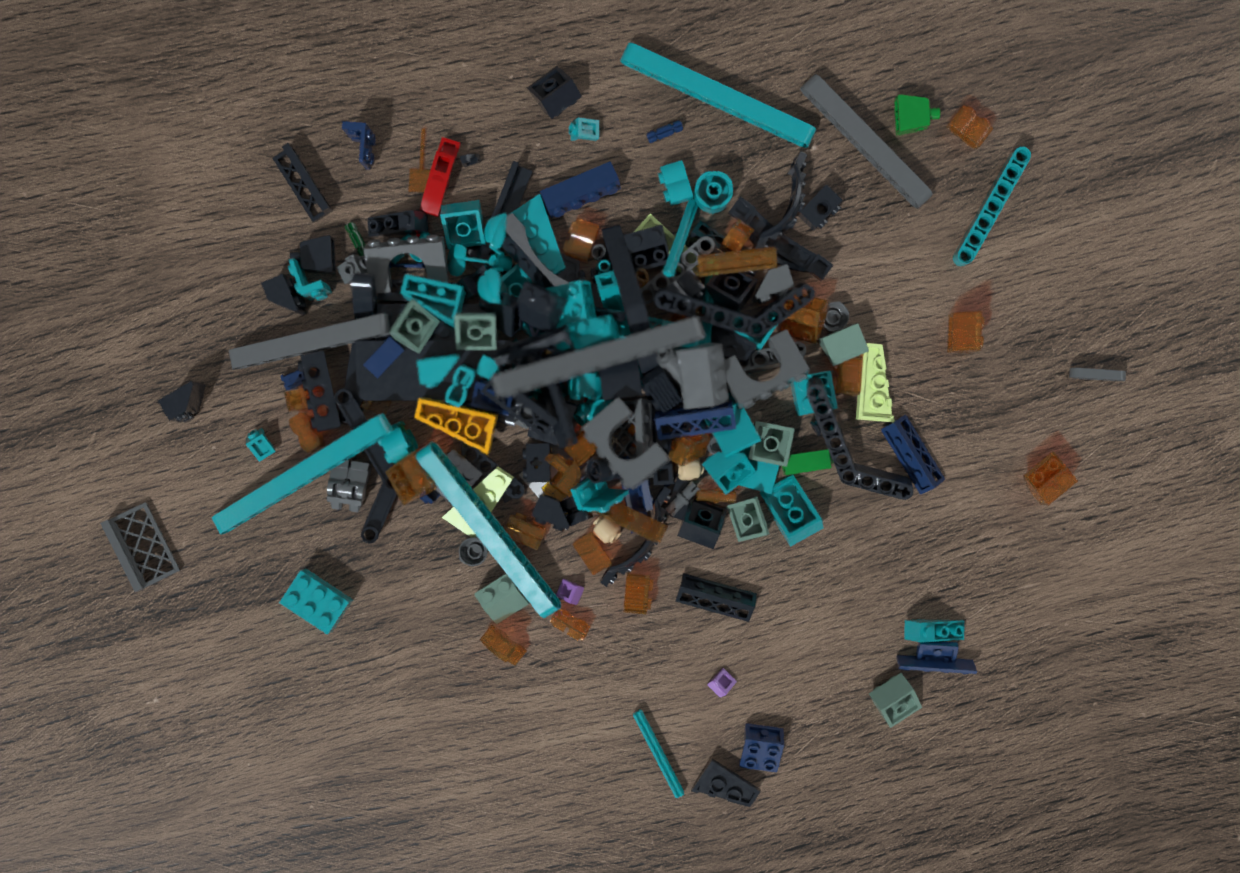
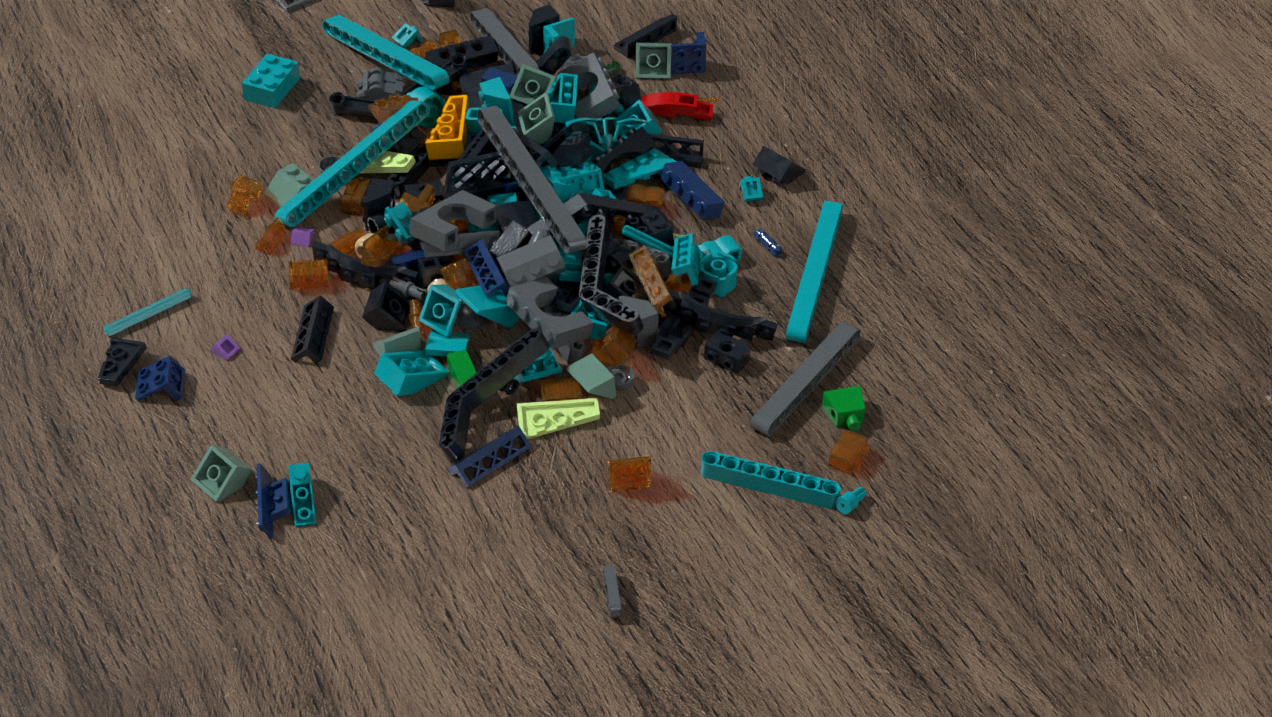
camera: 80 degrees right, 45 degrees down
(317, 255) = (585, 44): black torso -> none
(353, 184) = (653, 60): none -> sand green slope
(470, 159) = (698, 124): black tile -> none
(710, 220) = (686, 257): none -> teal fence
(774, 444) = (476, 335): sand green slope -> none
(1026, 139) = (850, 500): none -> teal piece
(1049, 479) = (484, 561): clear orange slope -> none

